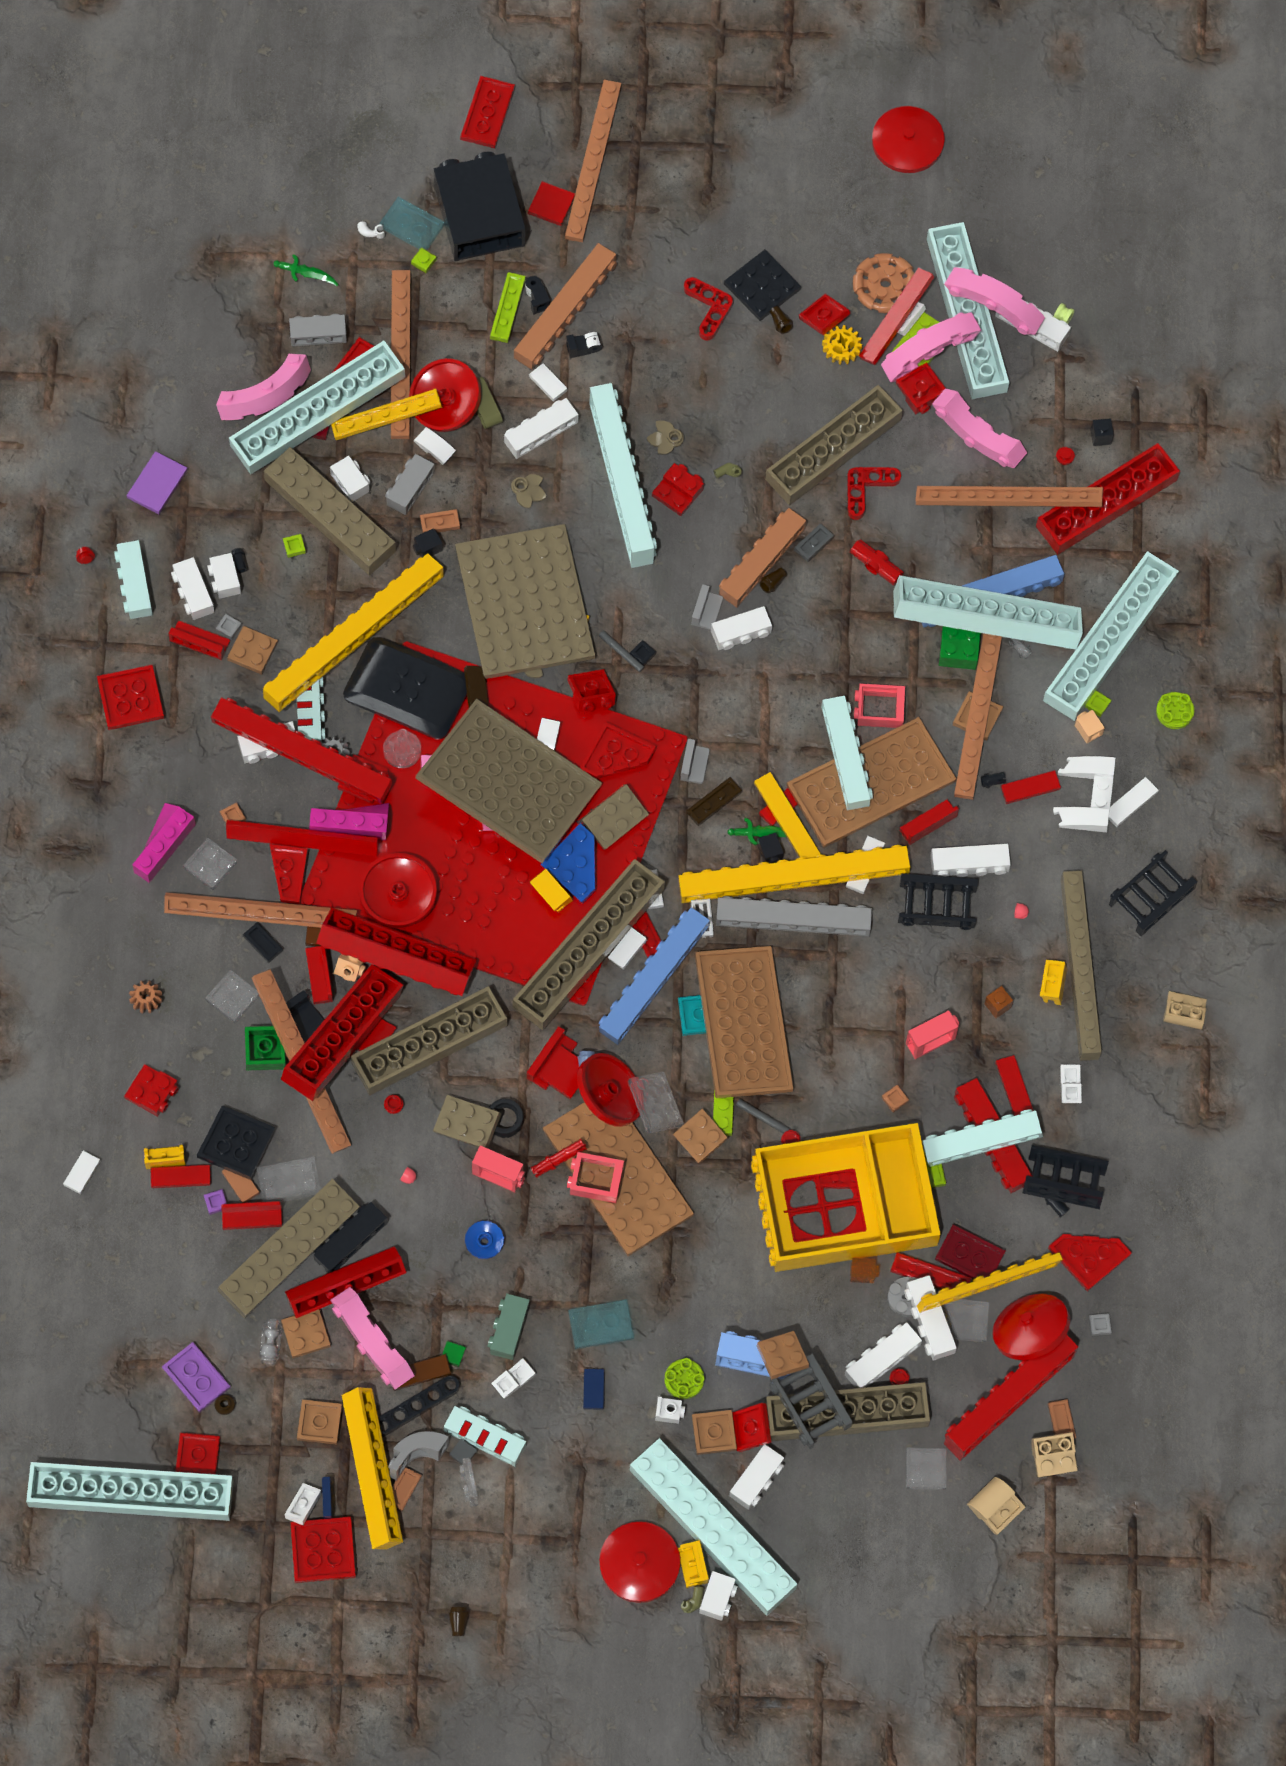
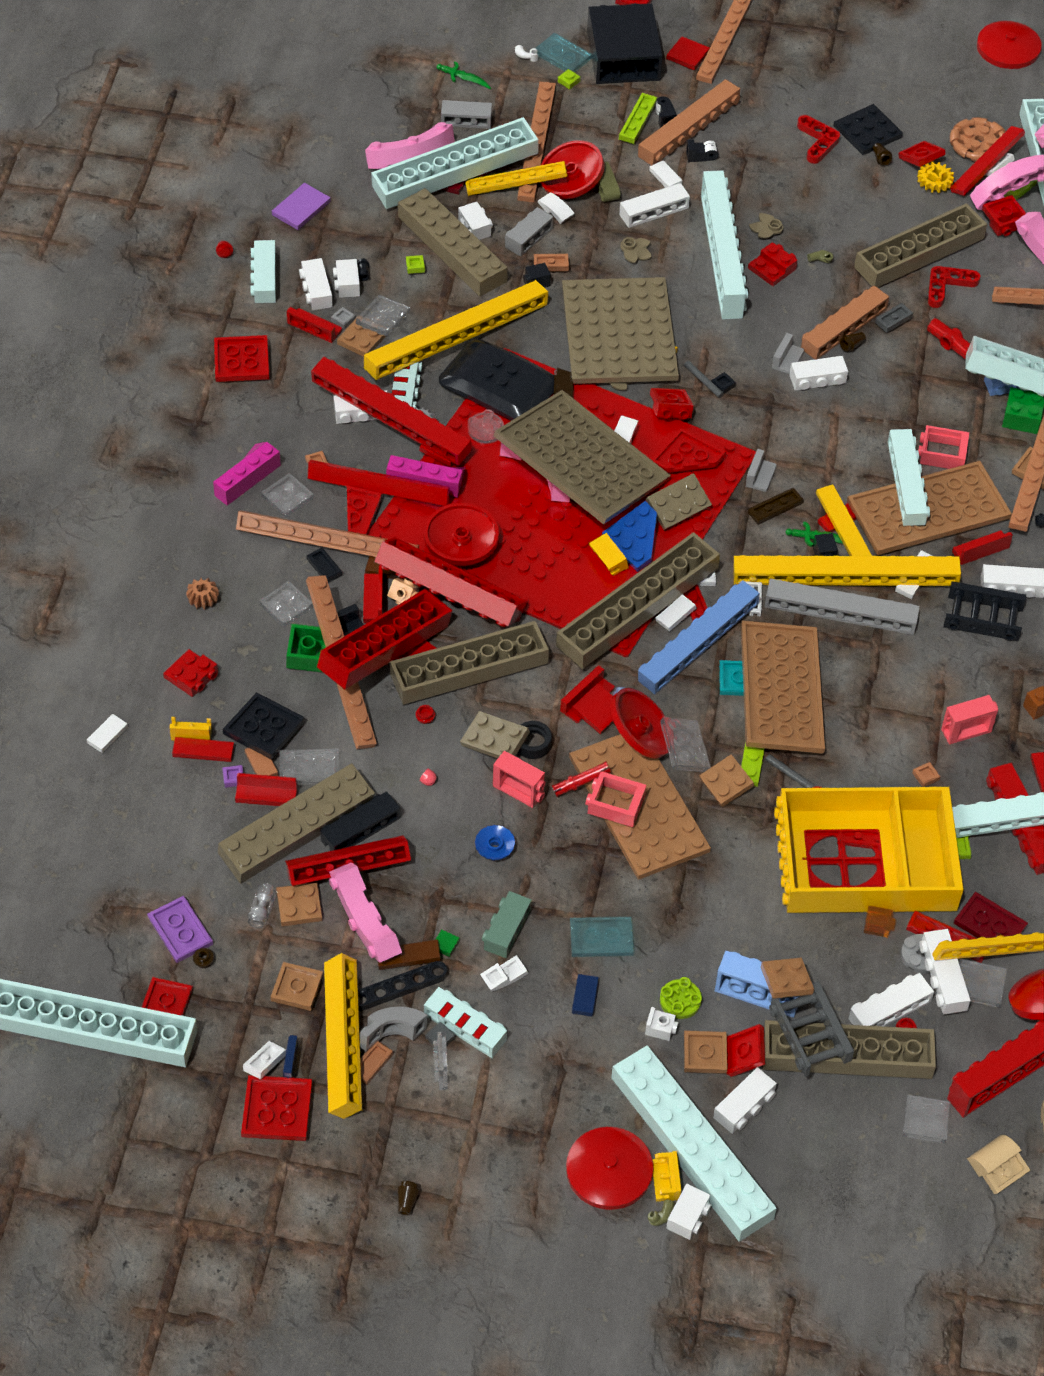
camera: 10 degrees right, 15 degrees down
(271, 622) = (382, 315): none -> clear plate

